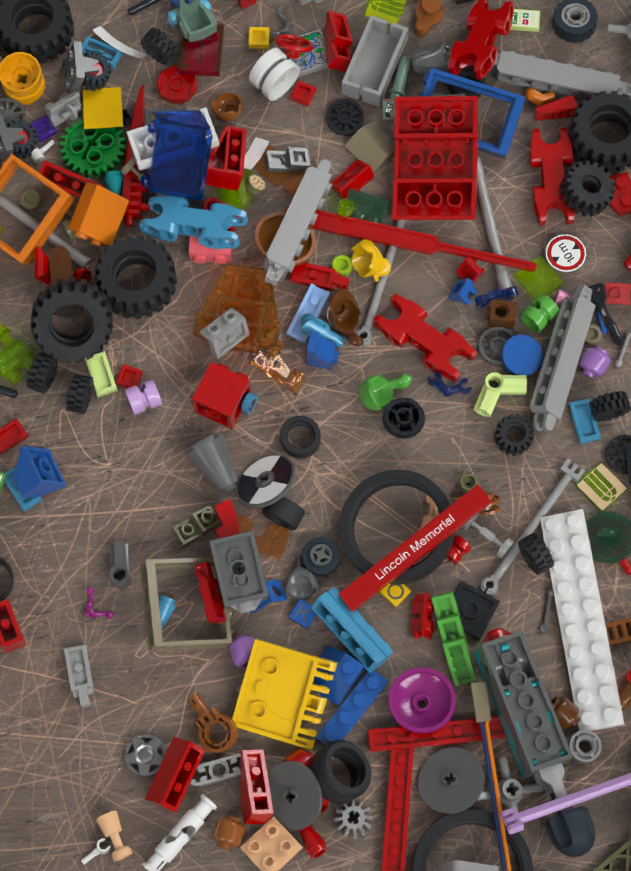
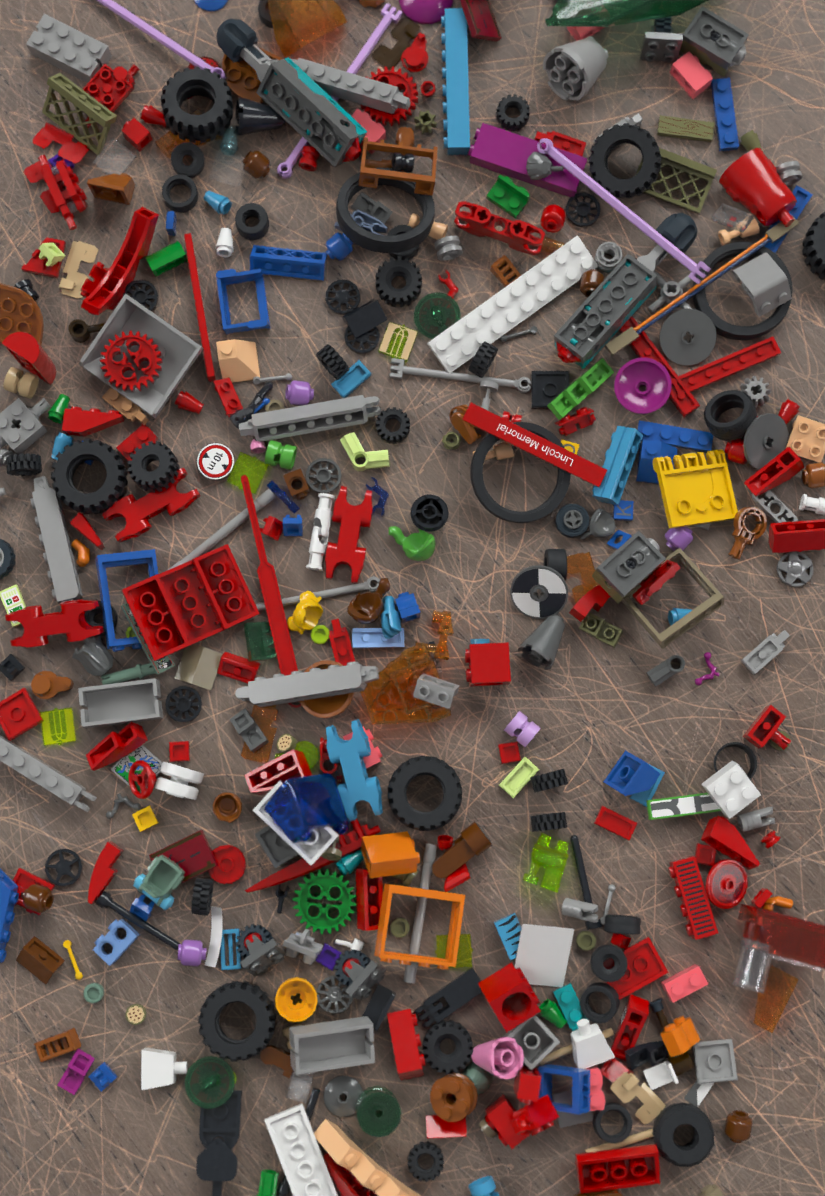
camera: 120 degrees left, 10 degrees up
(71, 346) = (481, 829): black tyre -> none
(102, 108) = (285, 913): yellow sticker -> none
(116, 17) = (191, 953): none -> medium lavender head
(255, 152) = (251, 762): white sticker -> none
(300, 421) = (485, 573): black tyre -> none
(341, 208) = (270, 650): clear neon green hinge -> none
(447, 317) = (320, 529): none -> white piece
(521, 355) = (323, 451): blue tile -> none

